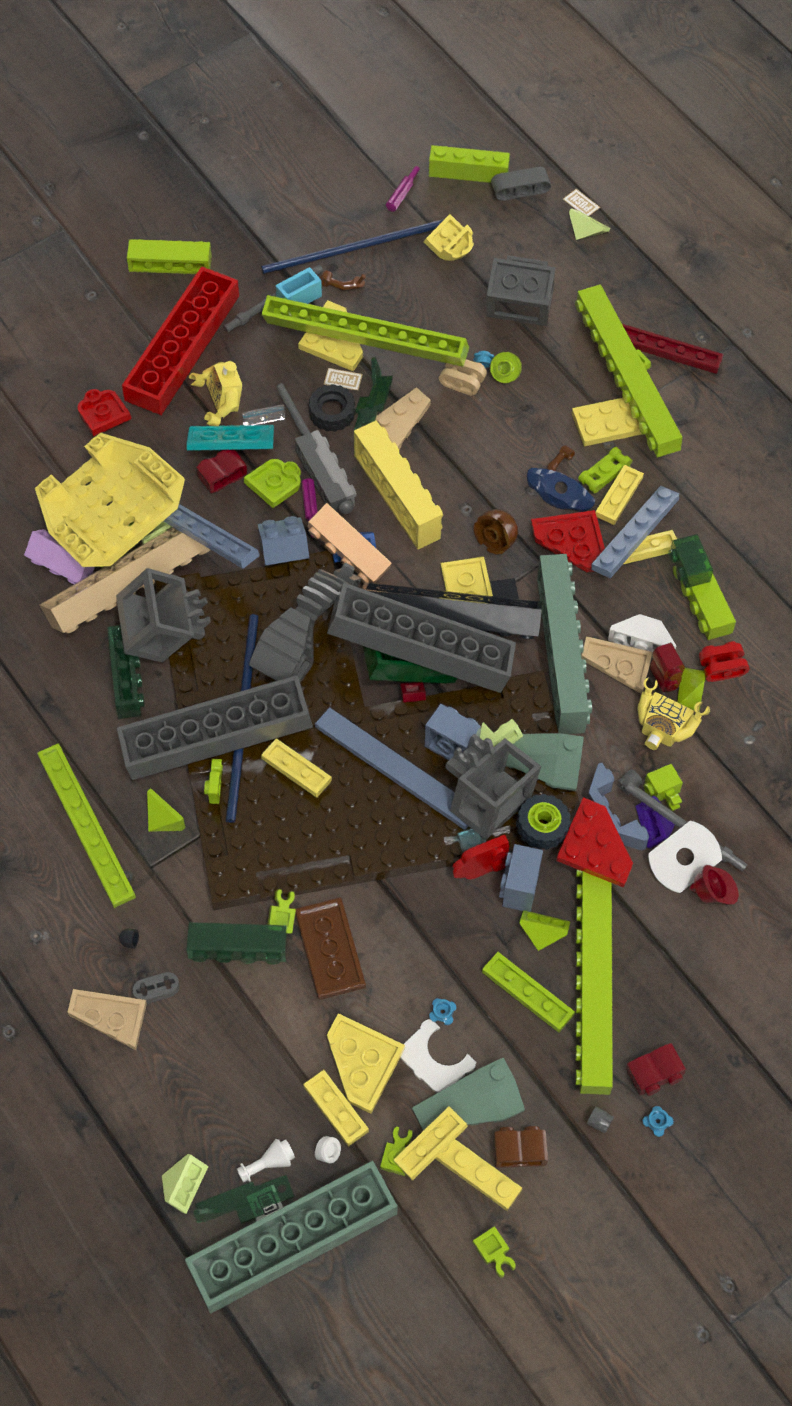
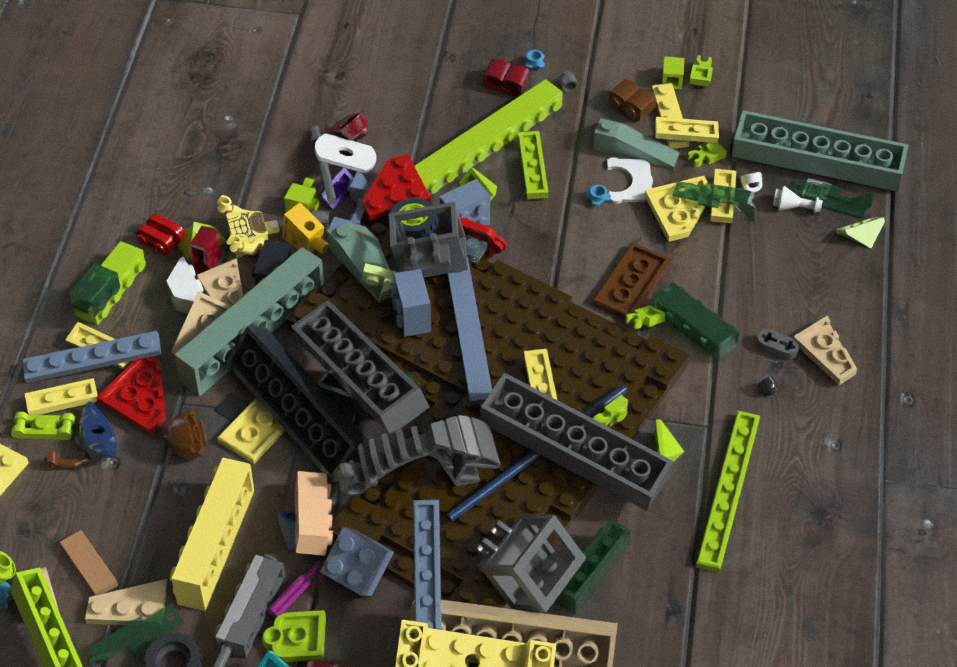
camera: 135 degrees left, 10 degrees down
(340, 1089) = (712, 195): none -> clear green piece
(459, 419) = (88, 563): none -> medium nougat tile
(518, 1221) = (673, 71): none -> lime brick
(593, 612) = (200, 316): none -> tan wing
(612, 710) = (269, 257): none -> black brick
(620, 751) = (304, 230): none -> yellow torso

